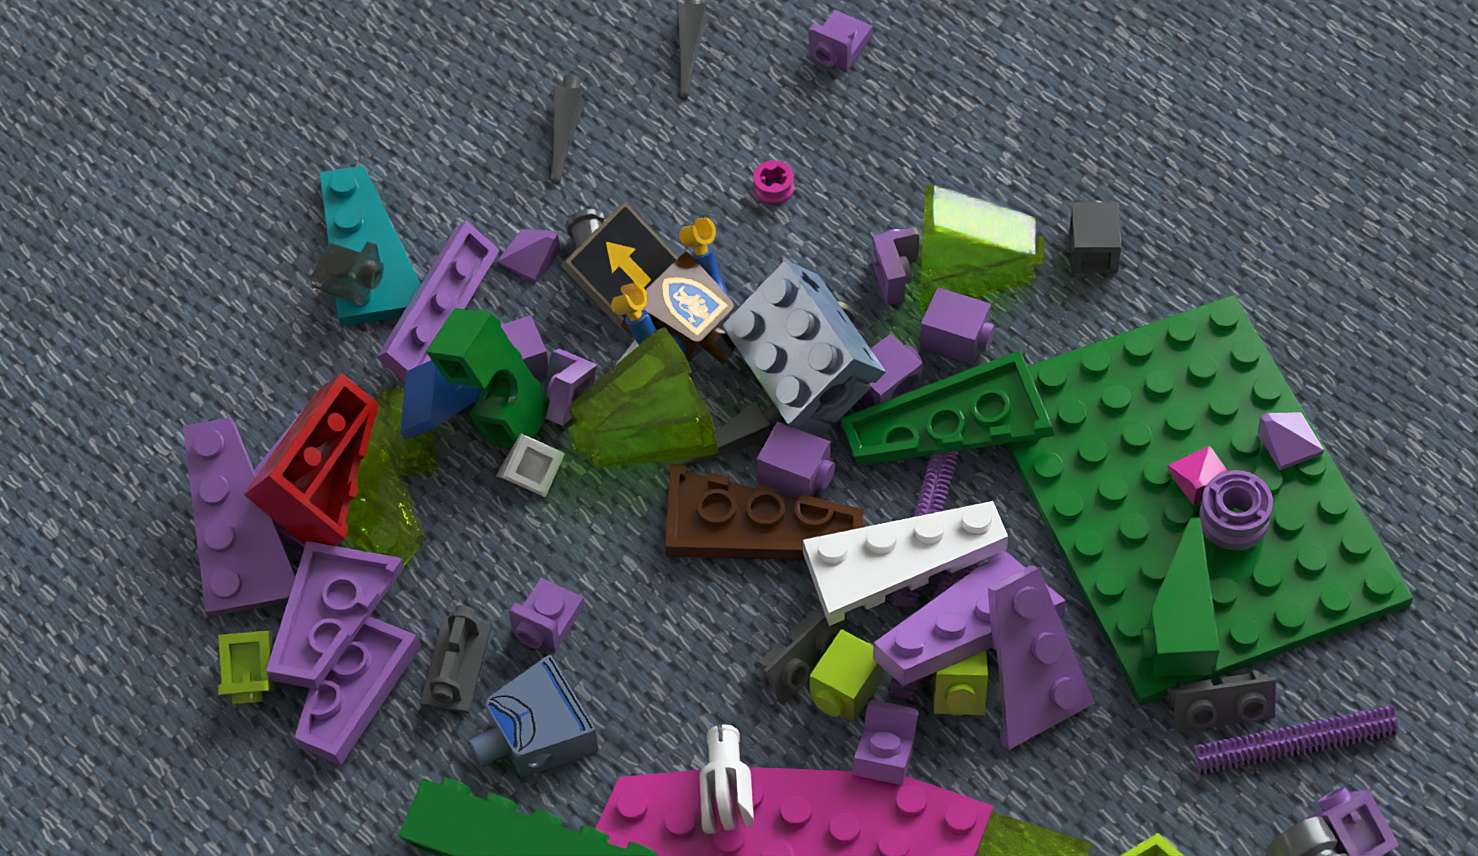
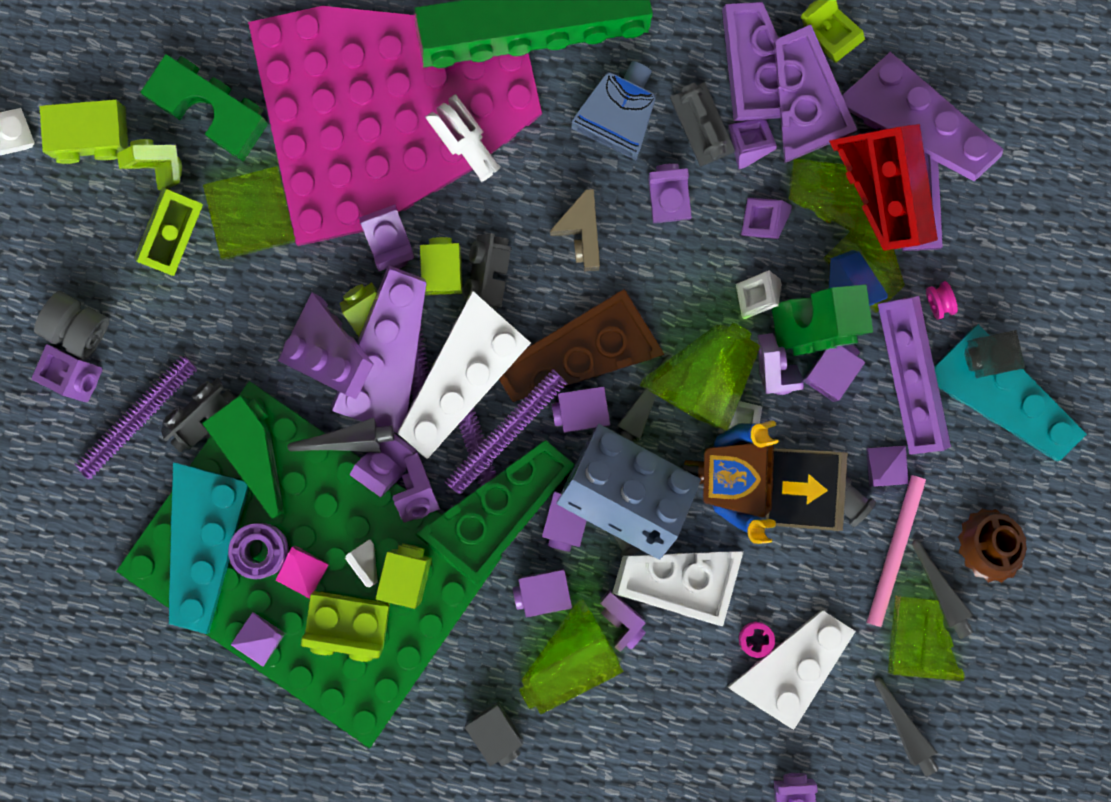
camera: 145 degrees right, 30 degrees up
(355, 356) = (942, 300): none -> dark pink bush
(419, 615) = (751, 141): none -> medium lavender slope
(466, 536) = (765, 217): none -> medium lavender slope
(485, 132) = (992, 545): none -> reddish brown piece
(579, 182) = (896, 551): none -> bright pink bar
(618, 97) = (921, 642): none -> clear neon green wing
(663, 634) = (582, 220): none -> dark tan slope
(747, 139) = (796, 669): none -> white wing
(816, 247) = (682, 582): none -> white wing
(890, 478) = (505, 433): none -> medium lavender axle
(1018, 486) = (419, 496): none -> medium lavender bracket
(1045, 528) = (383, 469): none -> medium lavender bracket
(1057, 562) = (358, 437): none -> dark grey piece
(1092, 388) = (404, 576): none -> lime brick
(1129, 440) = (364, 563): none -> white slope
(1187, 393) = (346, 626): none -> lime bracket
(1287, 568) = (203, 522): none -> teal wing

